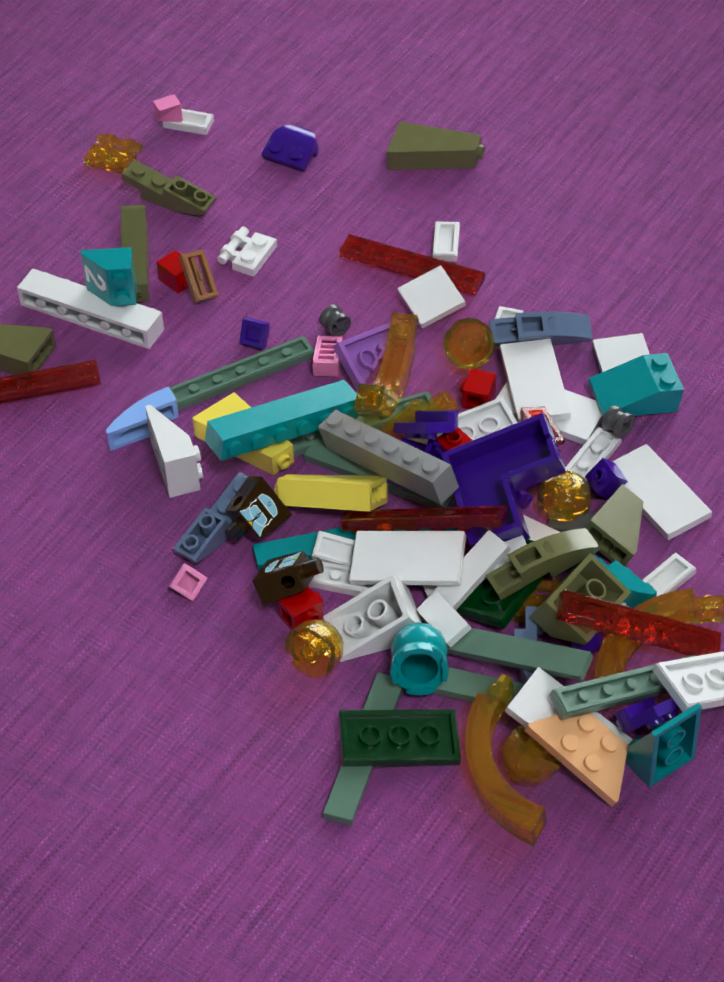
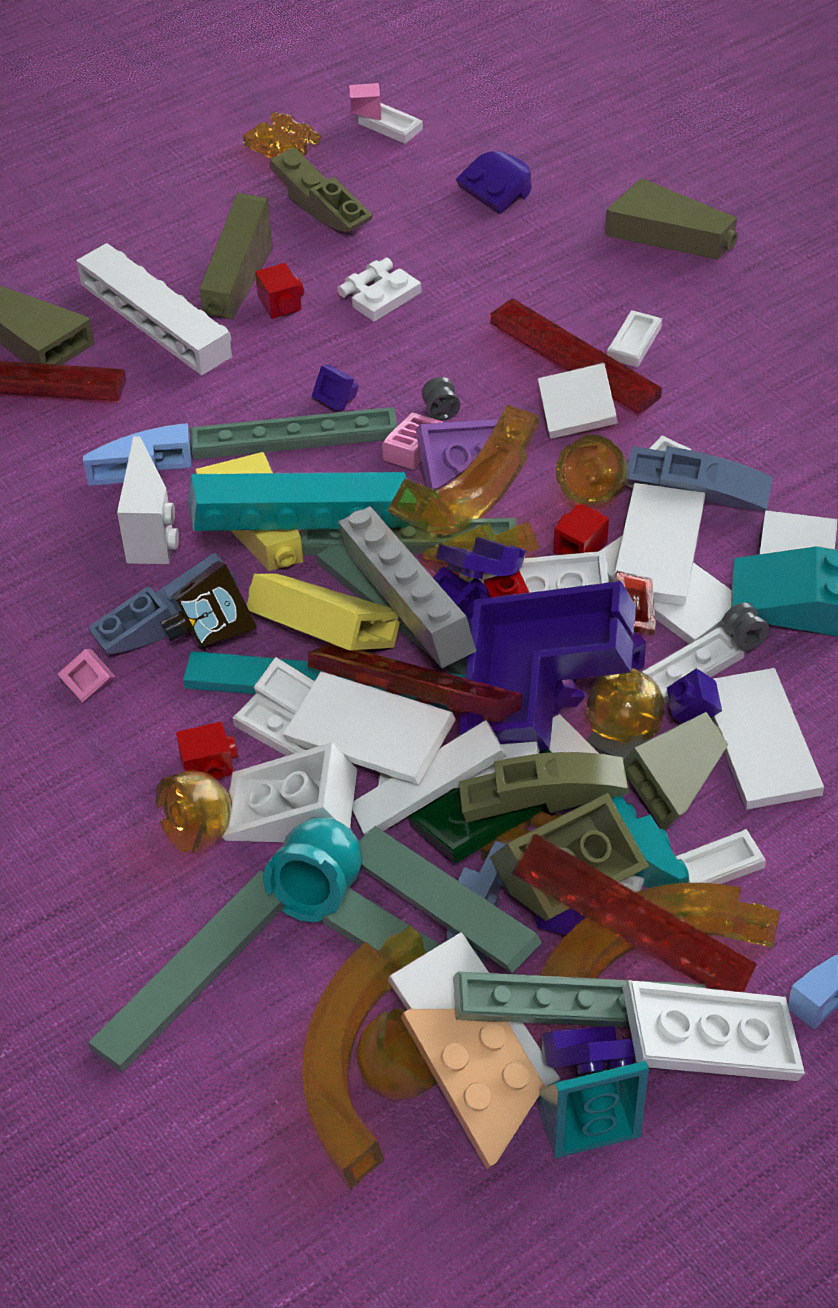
camera: 20 degrees right, 0 degrees up
(111, 275) = (183, 269): teal slope -> none
(213, 293) = (298, 328): medium nougat tile -> none
(286, 576) = (215, 701): dark brown torso -> none
(399, 737) = (240, 970): dark green tile -> none
(444, 618) = (377, 824): white tile -> none

